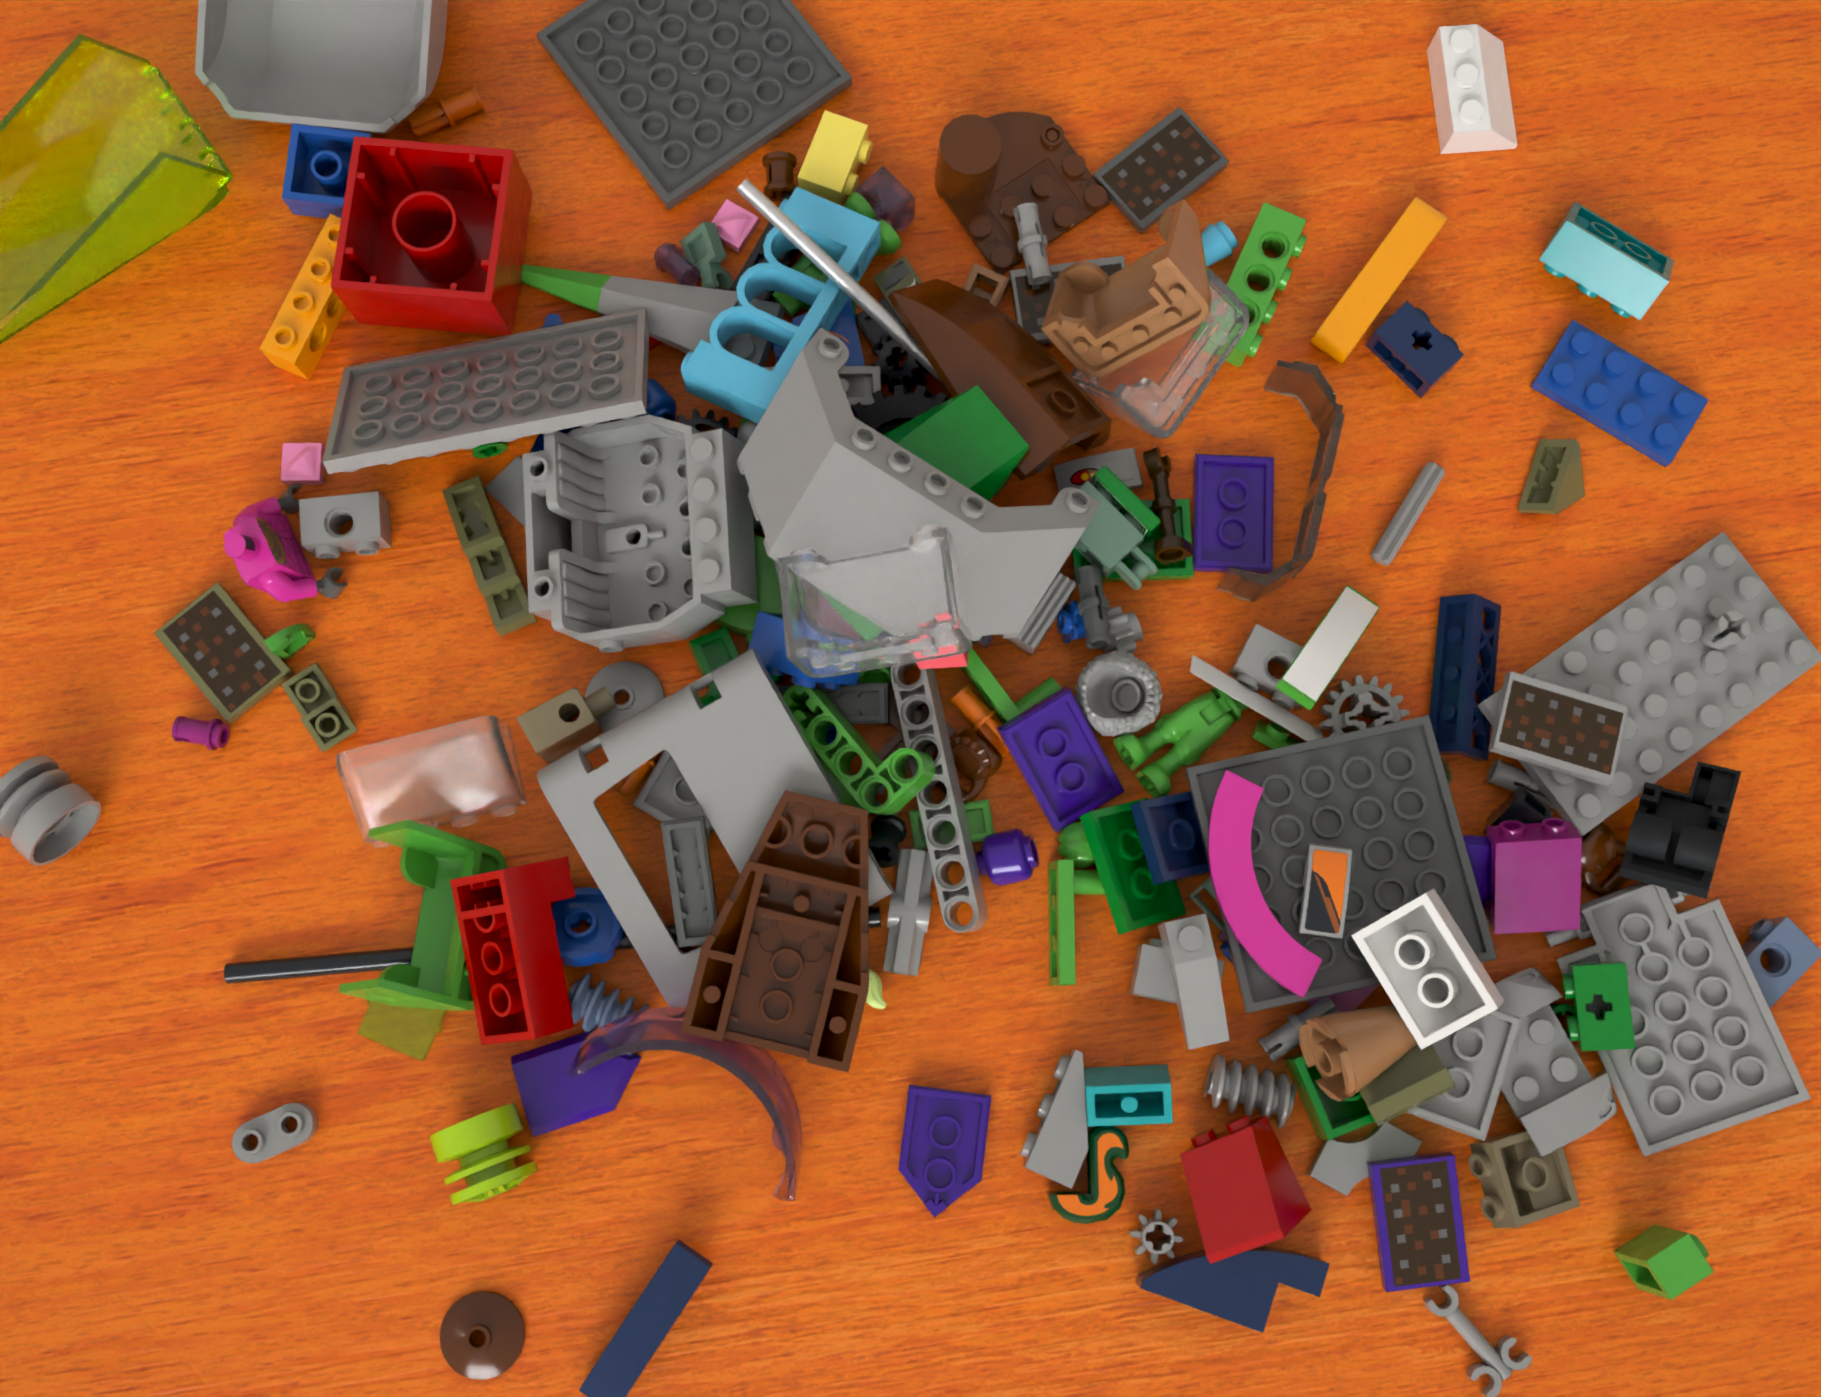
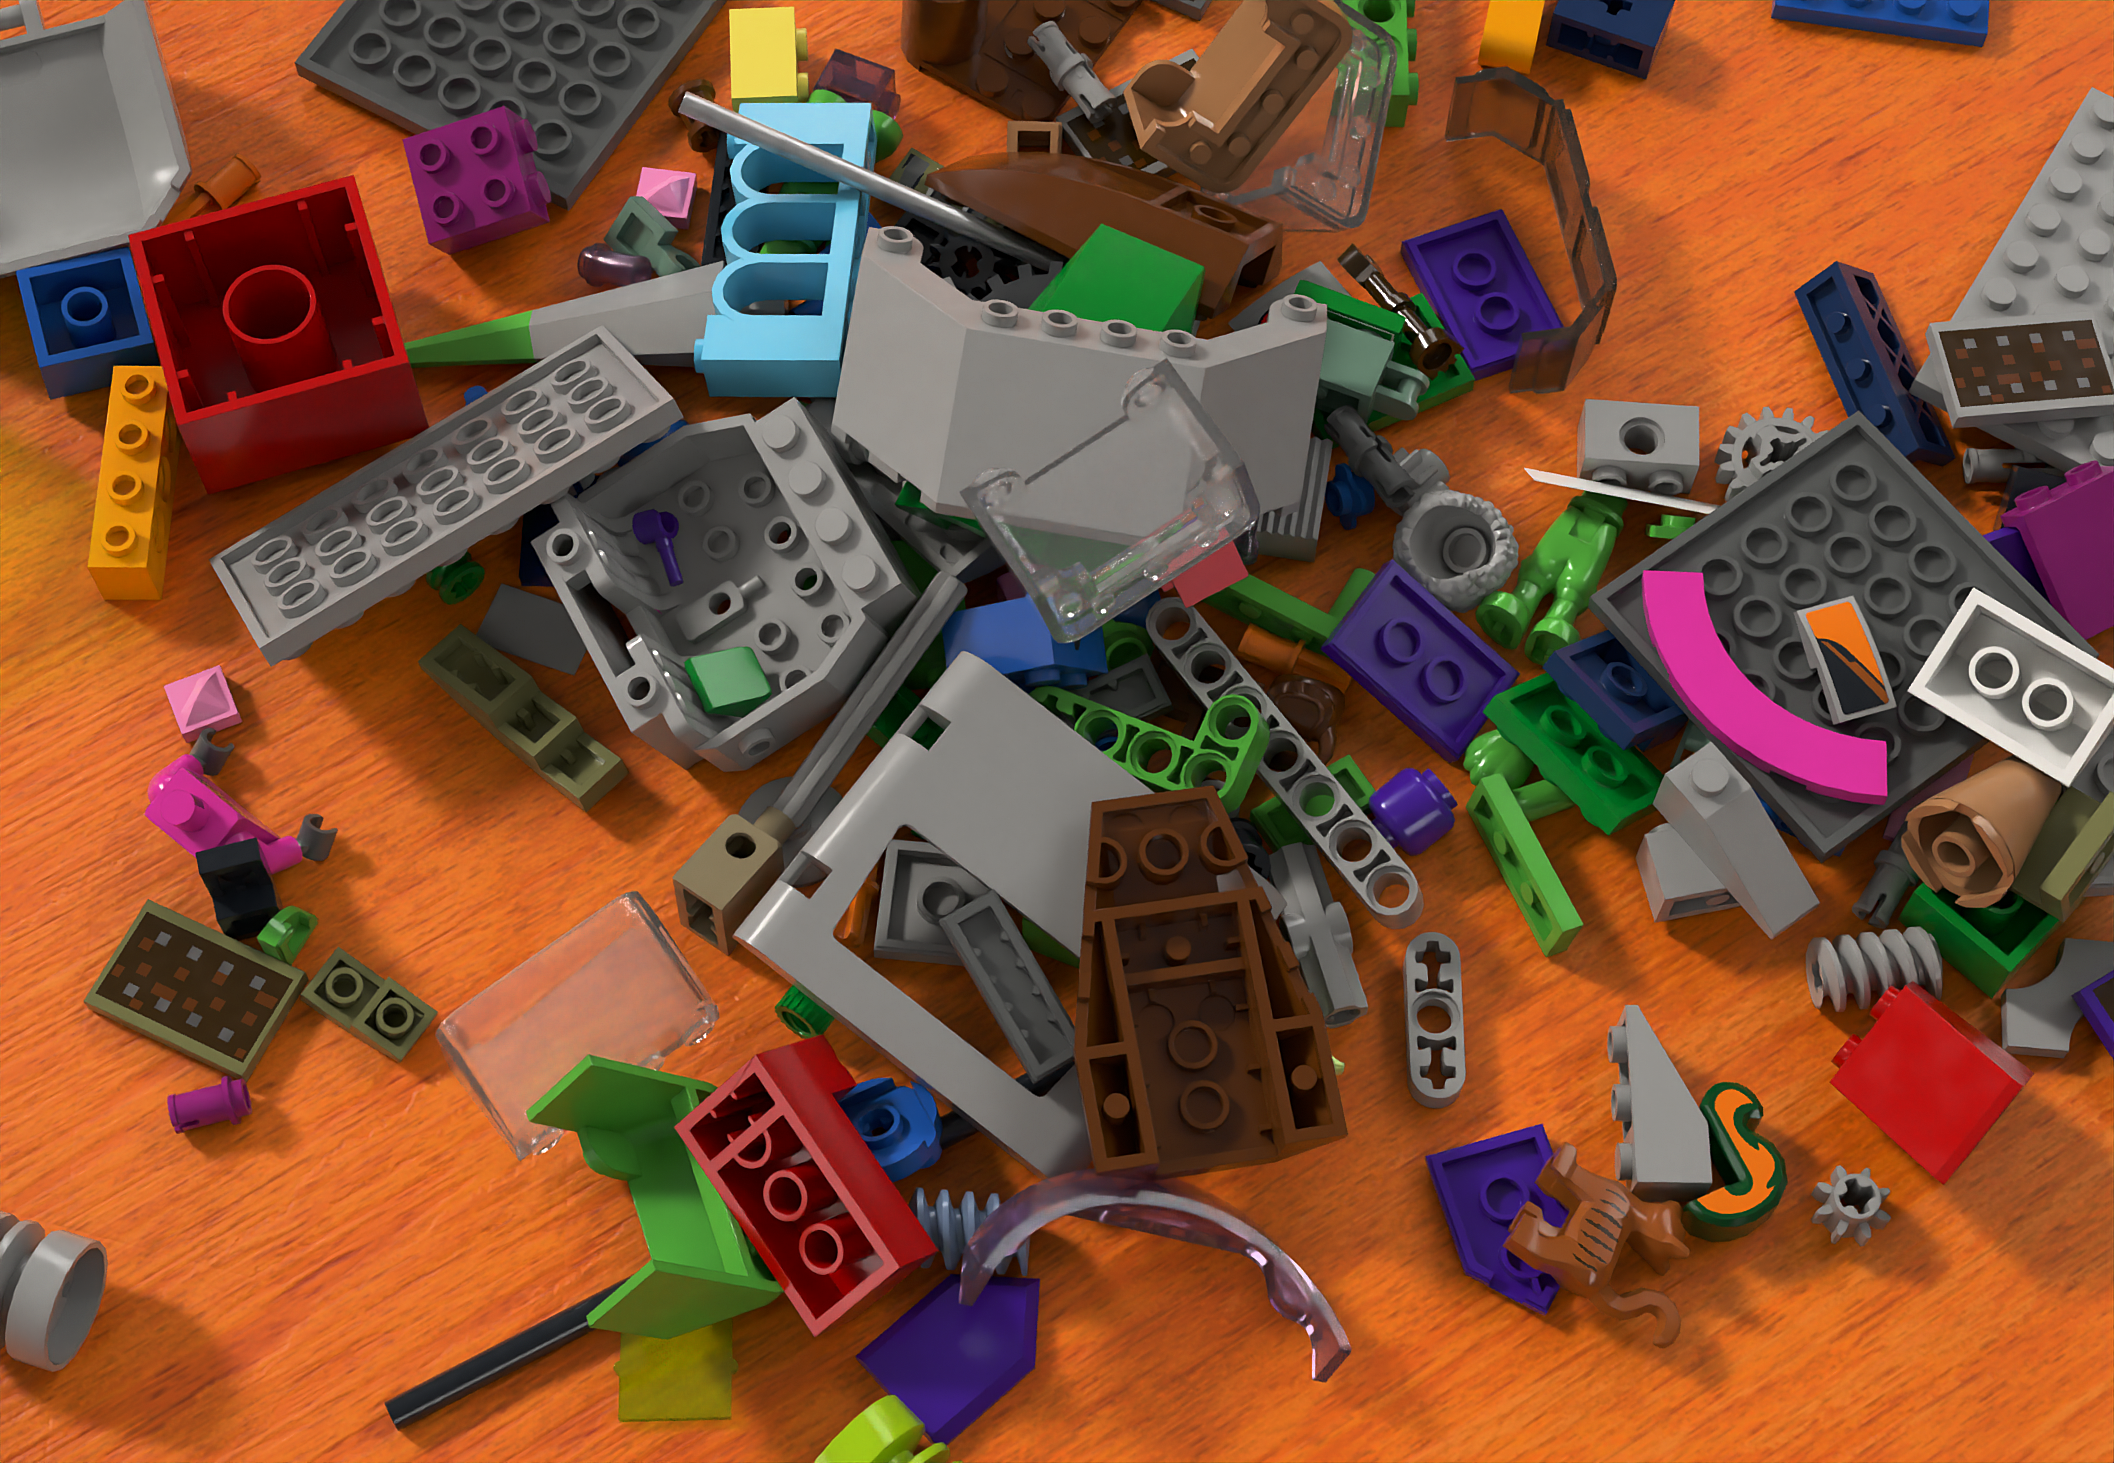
camera: 25 degrees left, 15 degrees down
(267, 604) = (240, 887): none -> black slope
(324, 515) = (313, 724): light grey brick -> none
(610, 170) = (477, 180): none -> magenta brick
(611, 595) = (729, 681): none -> slope
(619, 469) = (660, 528): none -> dark purple hand
(694, 645) = (870, 697): none -> light grey axle
(979, 973) = (1418, 1061): none -> light grey beam
(980, 1189) = (1592, 1236): none -> dark orange animal
(1128, 1095) = (1728, 1034): teal brick -> none
(1237, 1286) = (1986, 1218): dark blue slope -> none
(1328, 647) = (1690, 391): white slope -> none
(1408, 513) = (1702, 212): light grey axle -> none
(1554, 477) = (1856, 103): olive slope -> none

